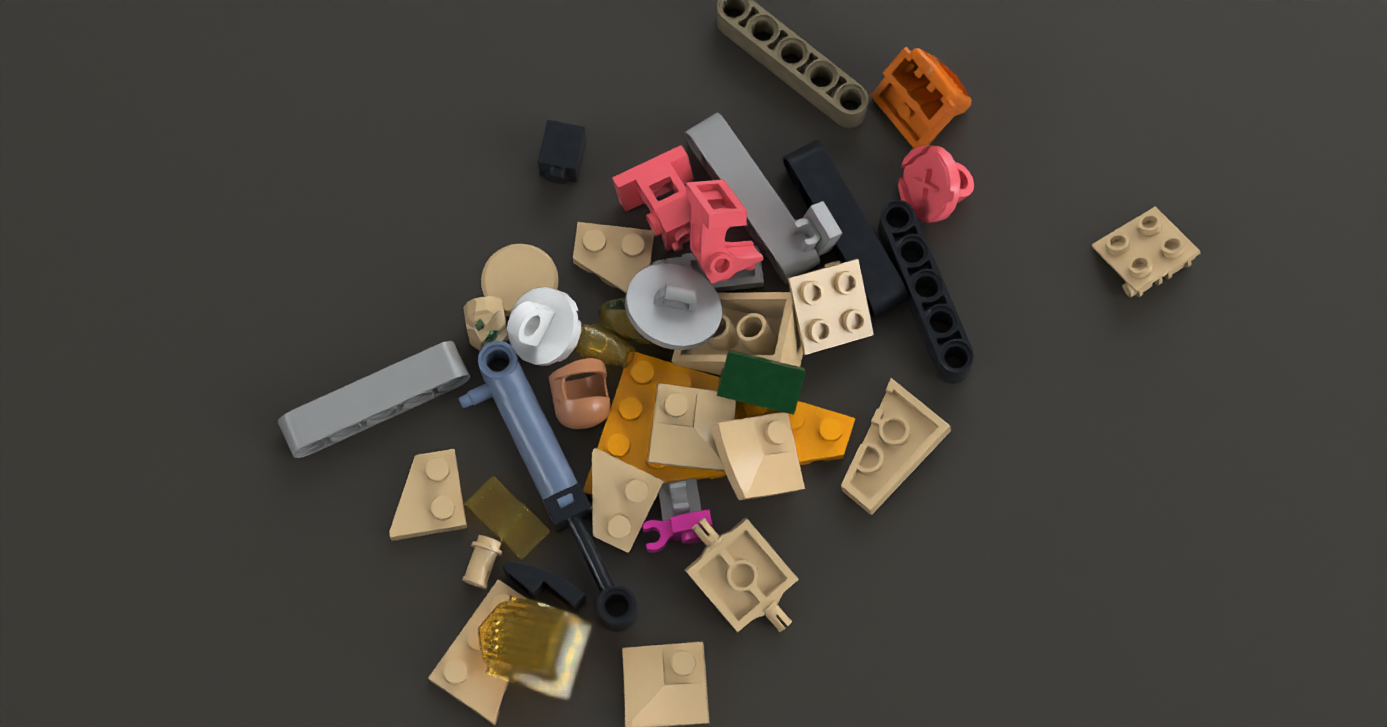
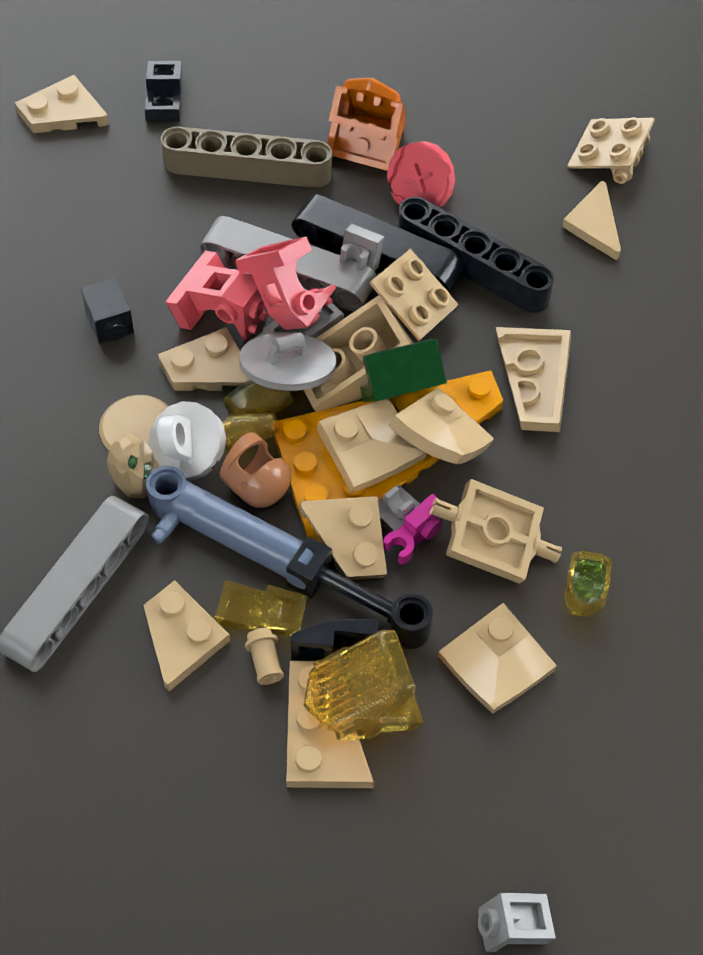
camera: 35 degrees left, 15 degrees down
(782, 671) = (587, 582): none -> rock
(1067, 321) = (594, 222): none -> tan tile

